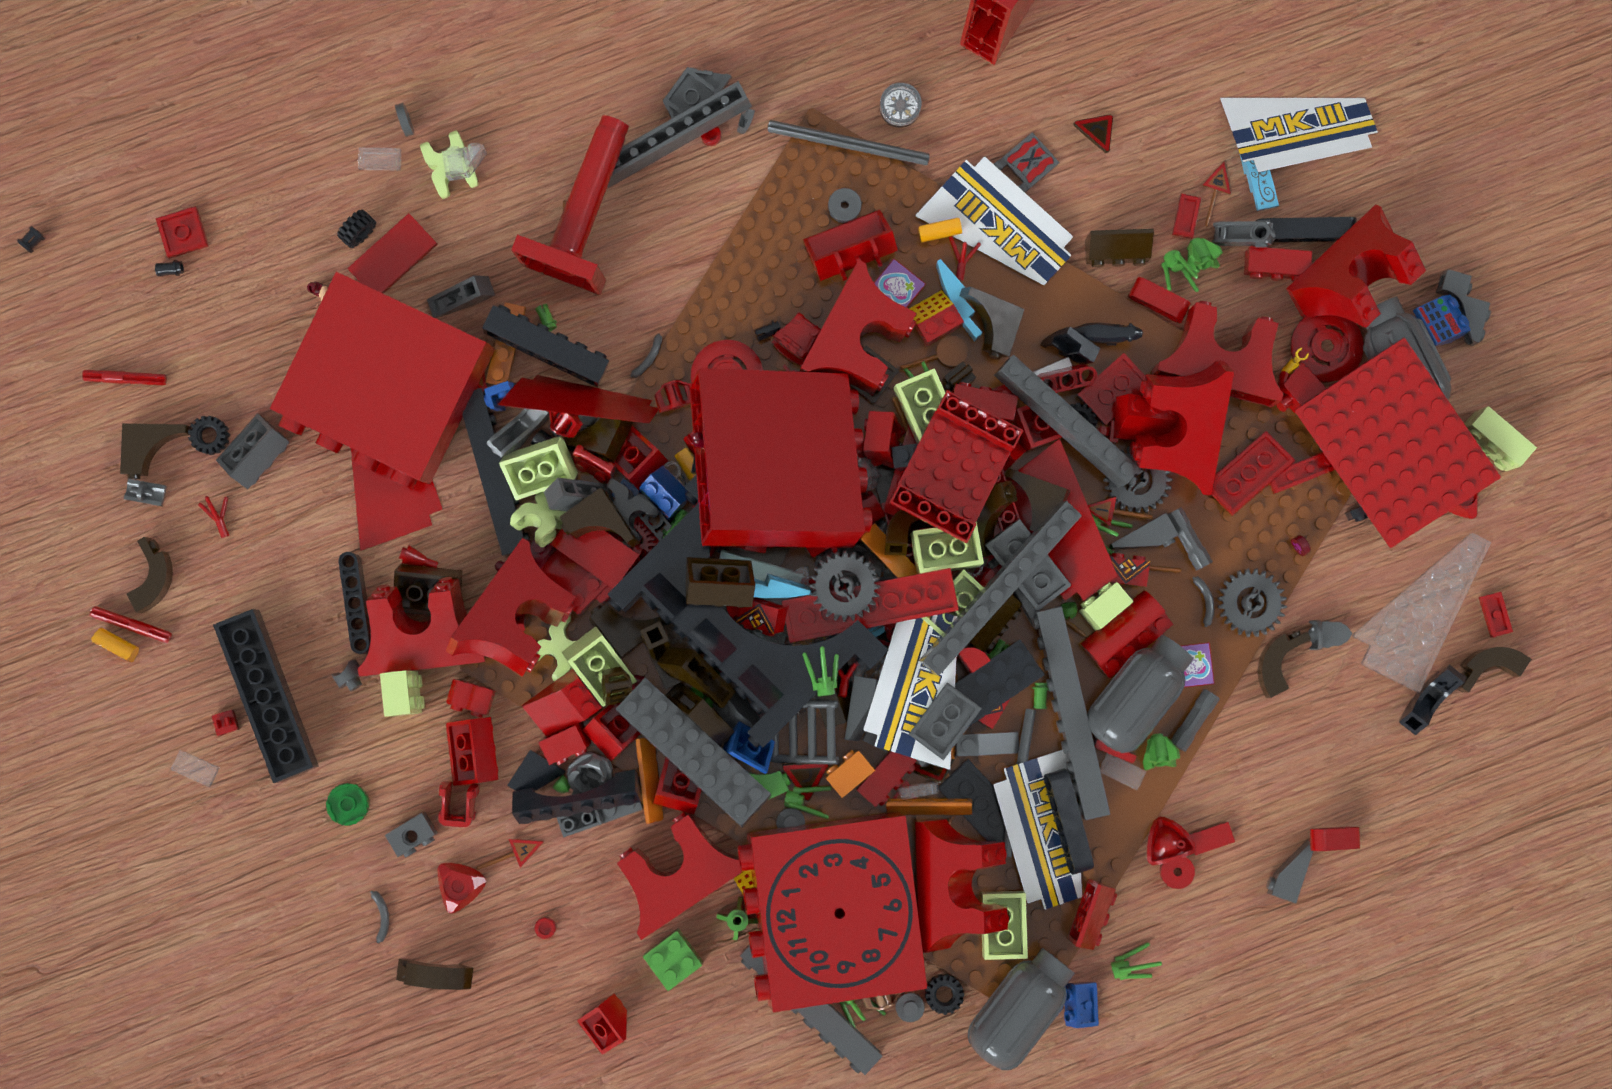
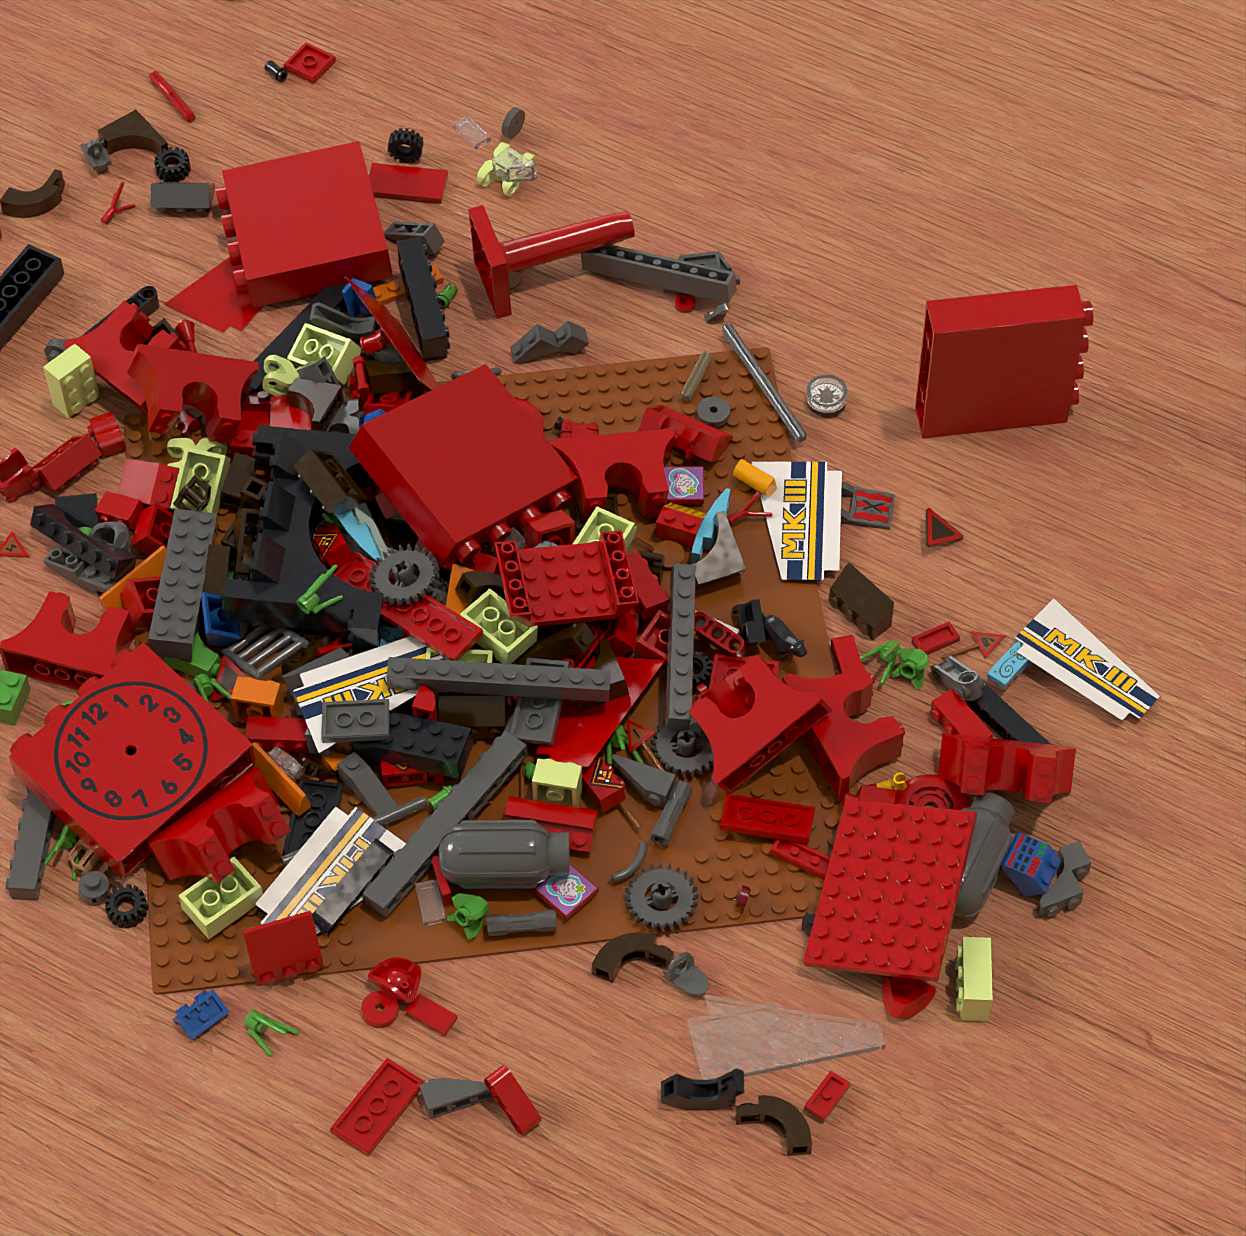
camera: 55 degrees right, 30 degrees down
(668, 276) = (542, 341): none -> dark grey arch
(798, 190) = (696, 376): none -> dark tan axle
(1020, 1011) = (155, 951): dark grey piece -> none
(1254, 931) = (377, 1107): none -> red tile

